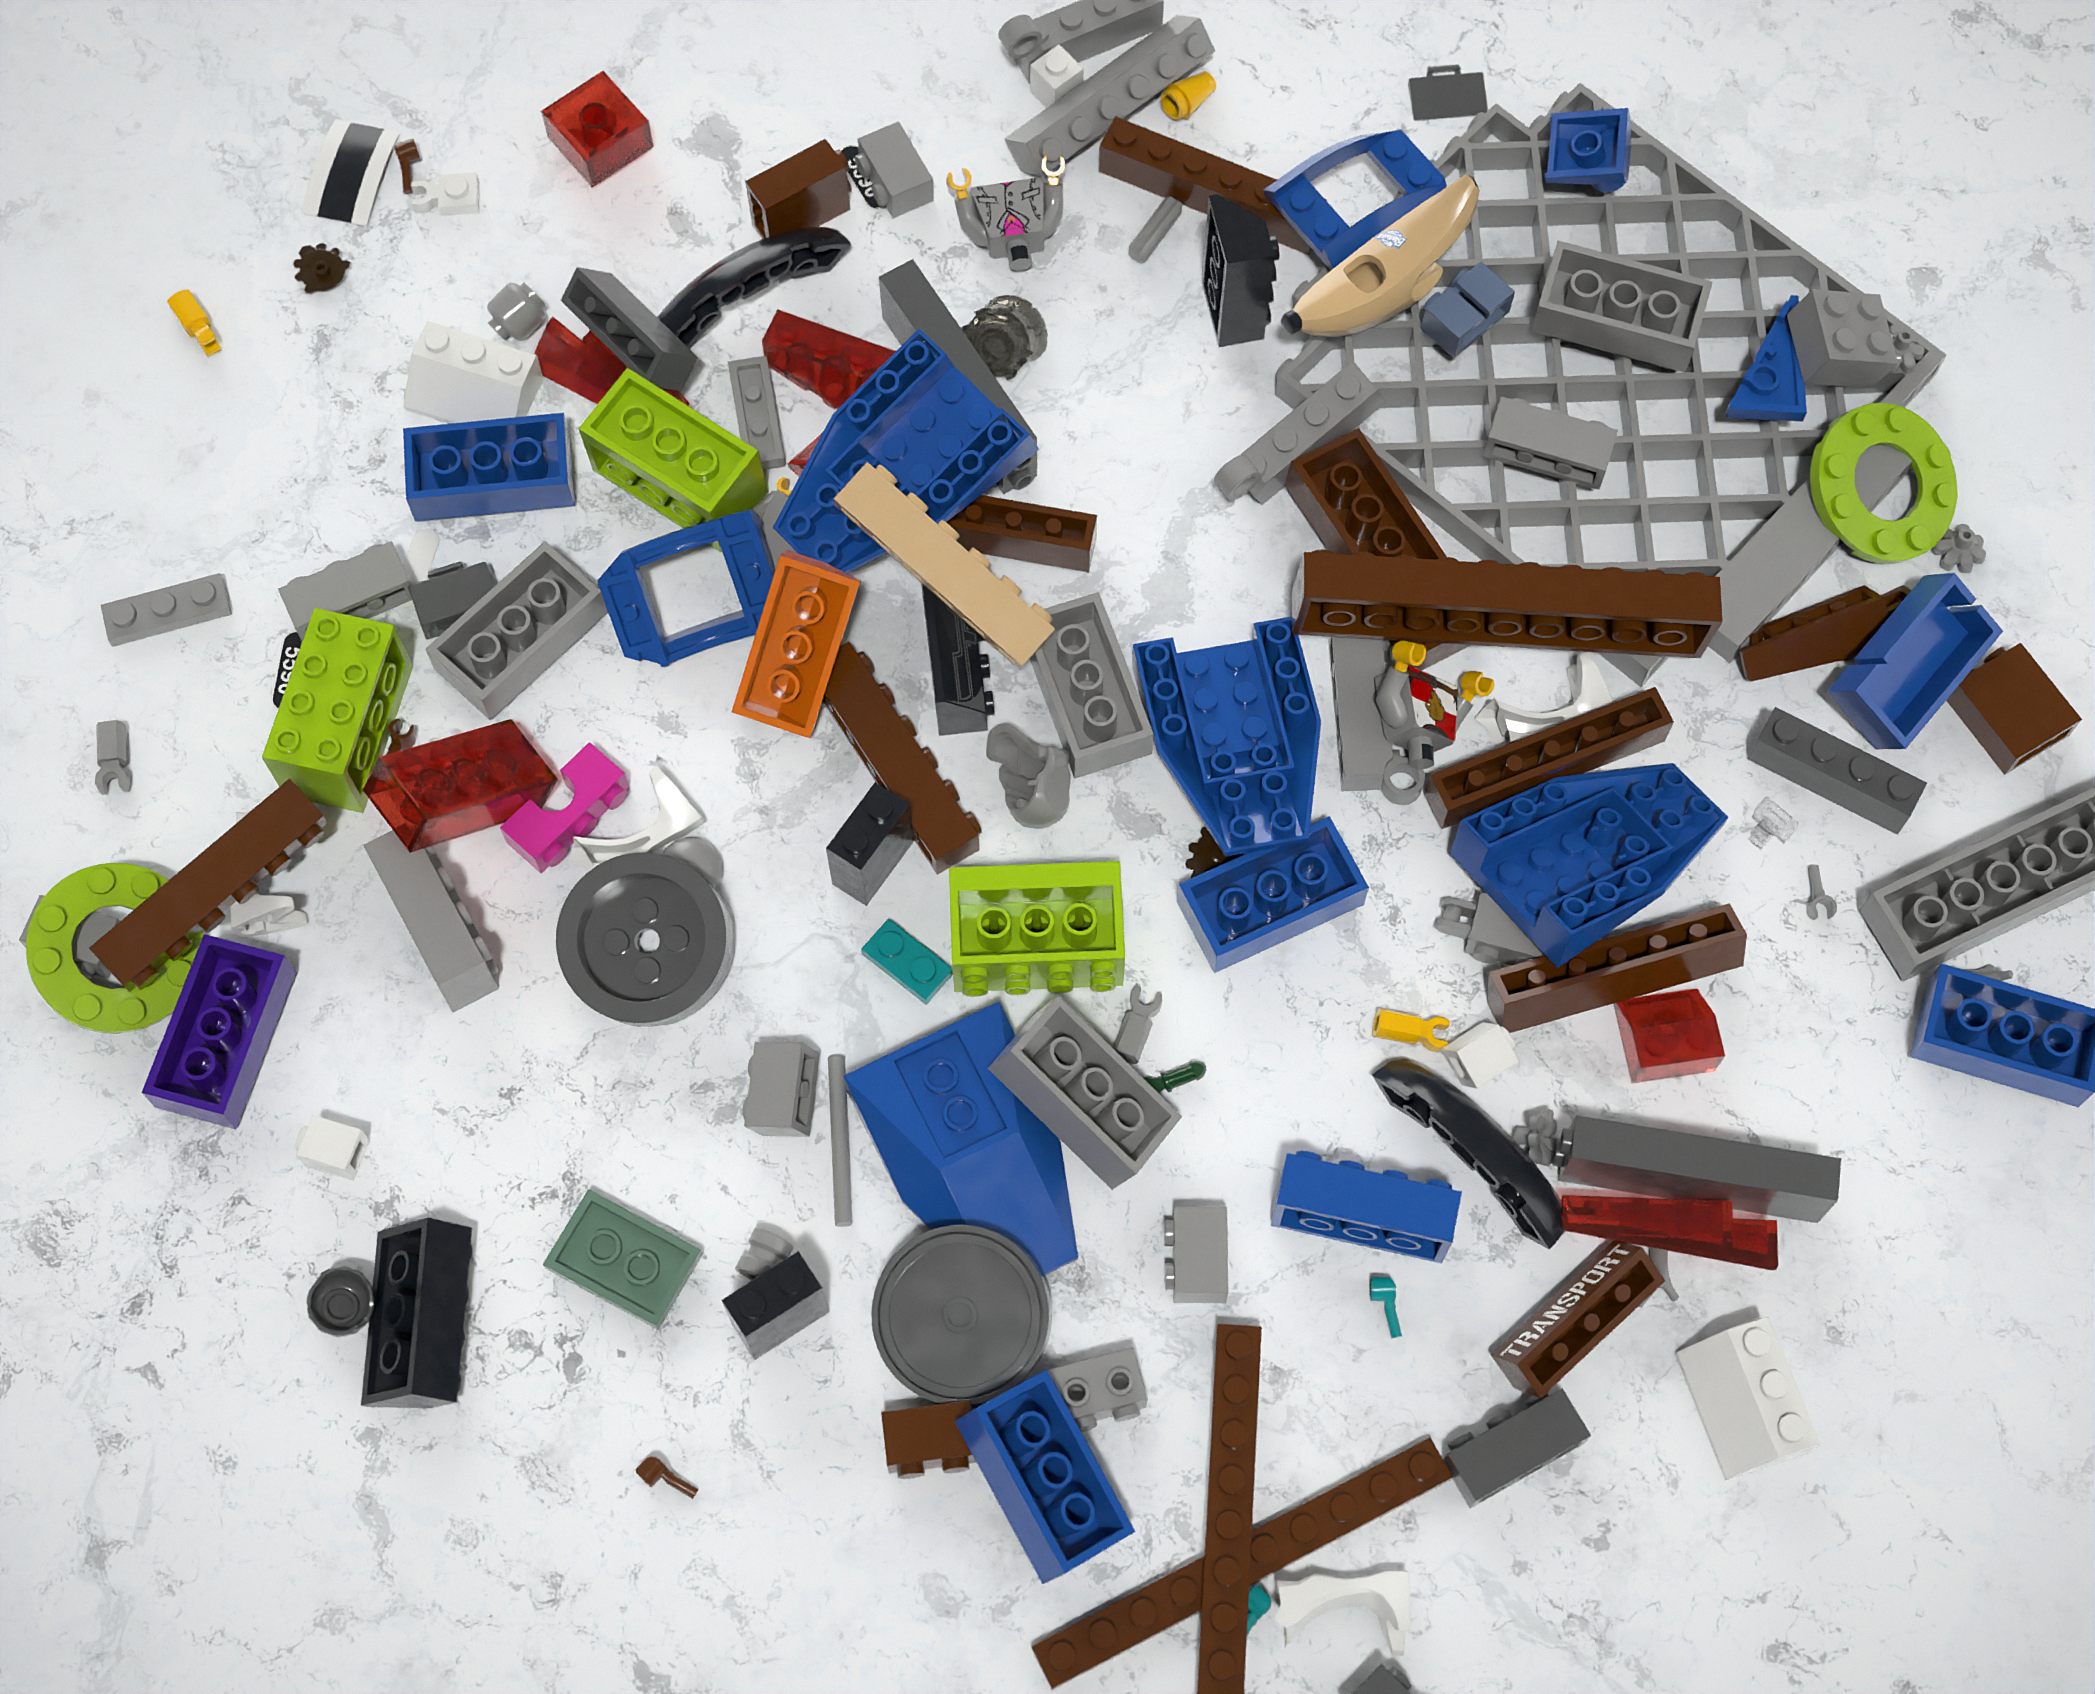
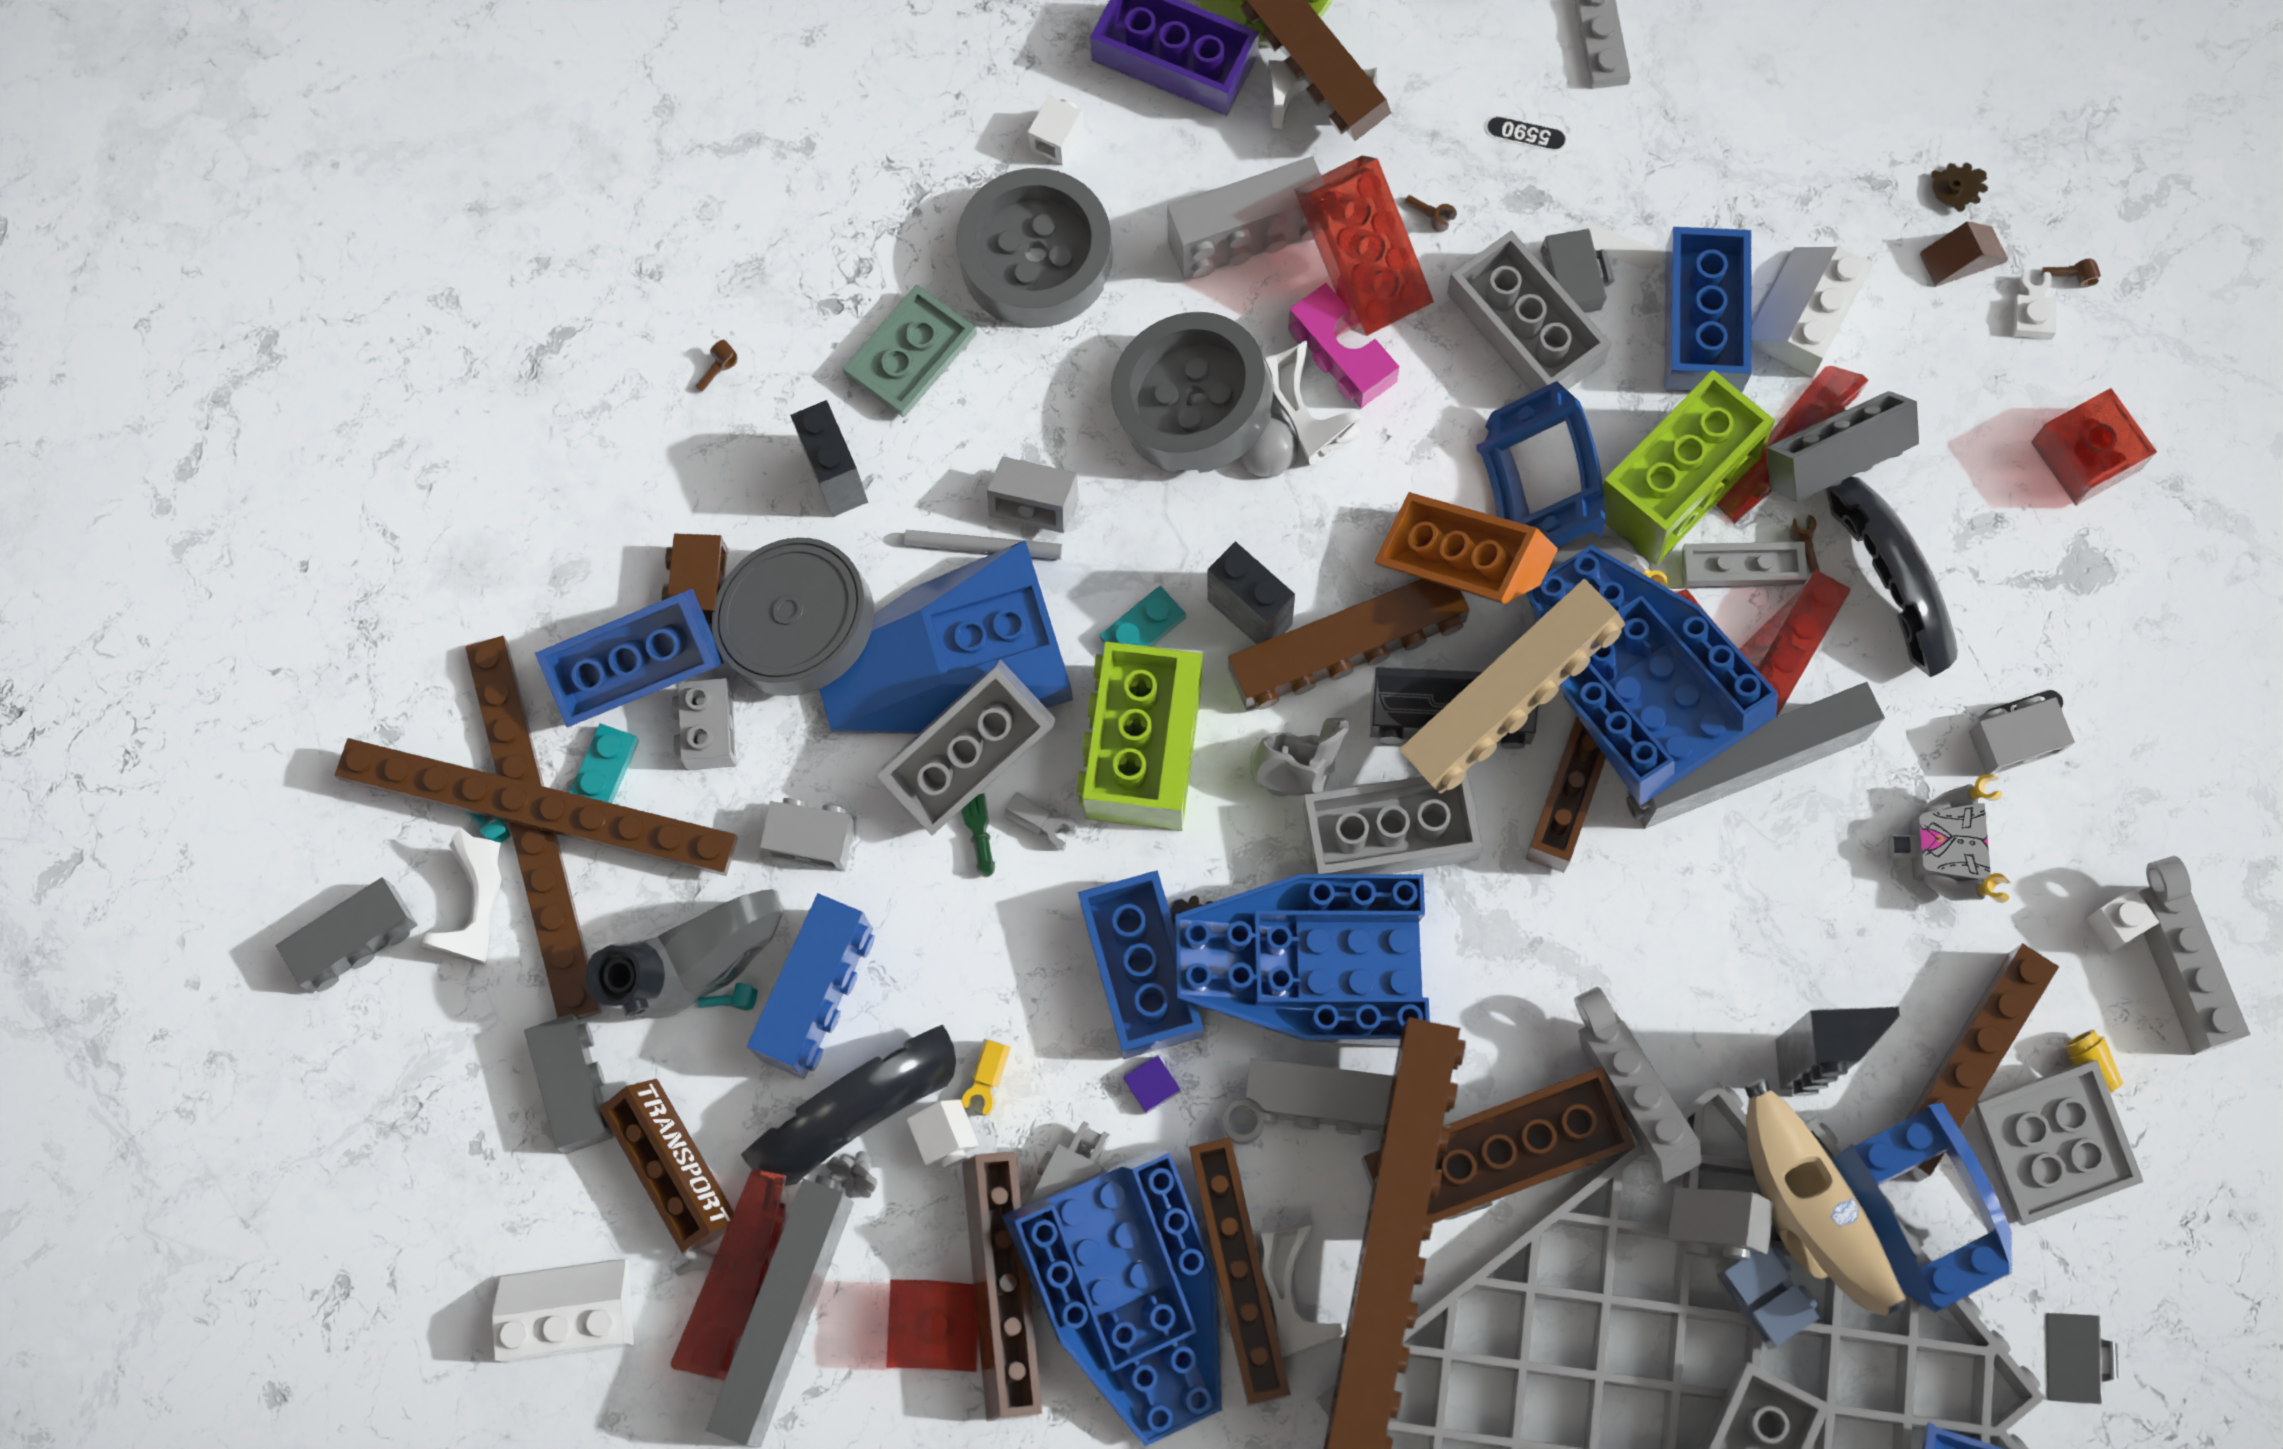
camera: 105 degrees right, 5 degrees up
(193, 320) = (1907, 71): yellow bar -> none
(338, 708) = (1462, 154): lime brick -> none
(340, 1301) = (917, 126): dark grey hair -> none
(348, 172) = (2073, 220): sticker -> none
(353, 587) = (1594, 179): light grey brick -> none
(398, 258) = (1963, 253): none -> reddish brown slope
(417, 1315) = (892, 185): black slope -> none
(476, 1099) = (1043, 212): none -> dark grey brick
(516, 311) = (1885, 353): light grey head -> none
(719, 366) = (1806, 536): none -> reddish brown hand
(764, 1253) = (885, 464): light grey wheel -> none
(800, 191) = (1992, 630): reddish brown brick -> none
(1007, 334) = (1801, 814): clear smoke hair -> none
(1110, 93) = (2097, 974): light grey brick -> none
(1155, 229) = (1925, 996): light grey axle -> none
(1163, 1497) = (605, 764): none -> teal plate
(1268, 112) = (2058, 1142): none -> light grey plate
(1362, 1336) = (686, 962): none -> dark grey piece
(1384, 873) = (1151, 1084): none -> dark purple tile
(1416, 344) = (1721, 1222): none -> light grey brick
(1421, 708) = (1308, 1152): torso -> none
(1550, 442) = (1593, 1350): light grey brick -> none

